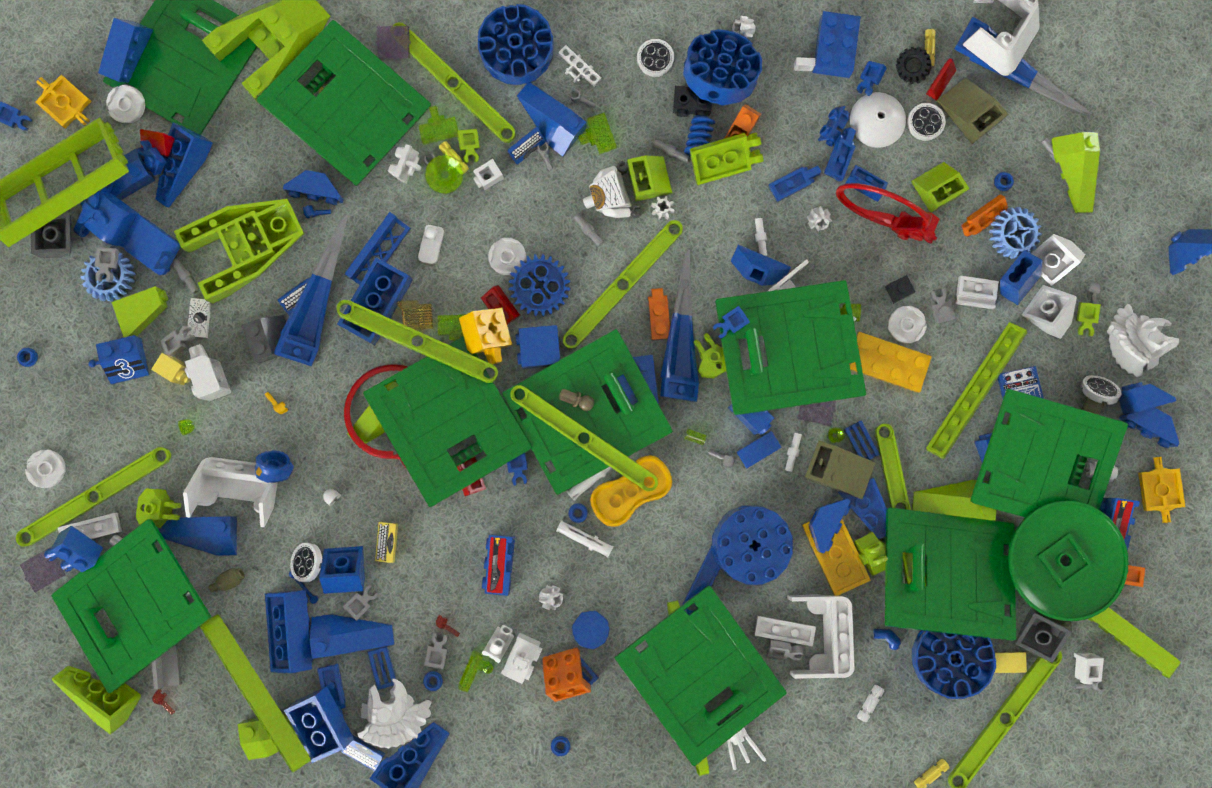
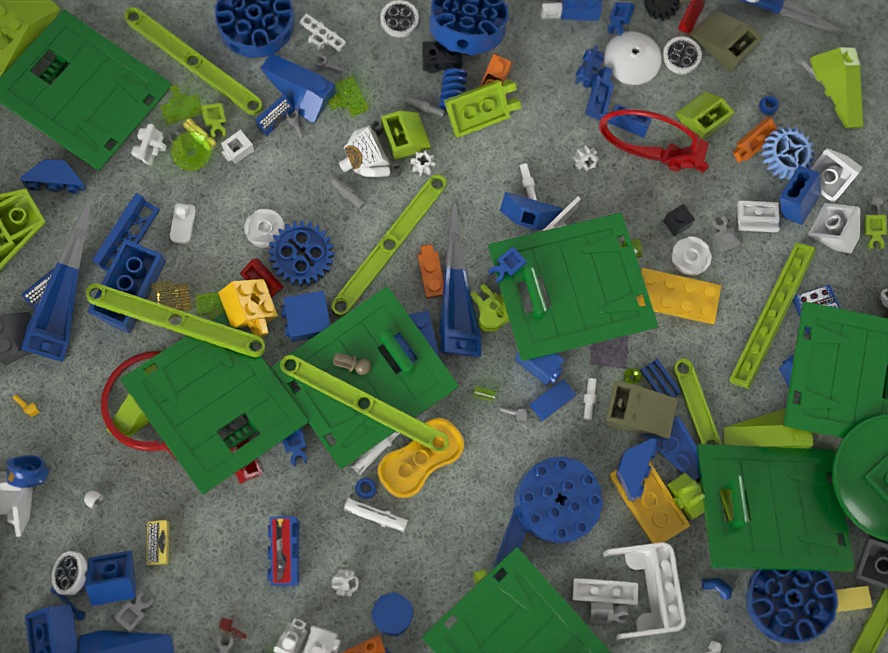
camera: 10 degrees left, 10 degrees down
(309, 211) = (49, 202): blue hand -> none
(393, 42) = (127, 27): piece -> none
(793, 182) = (555, 125): blue hinge -> none

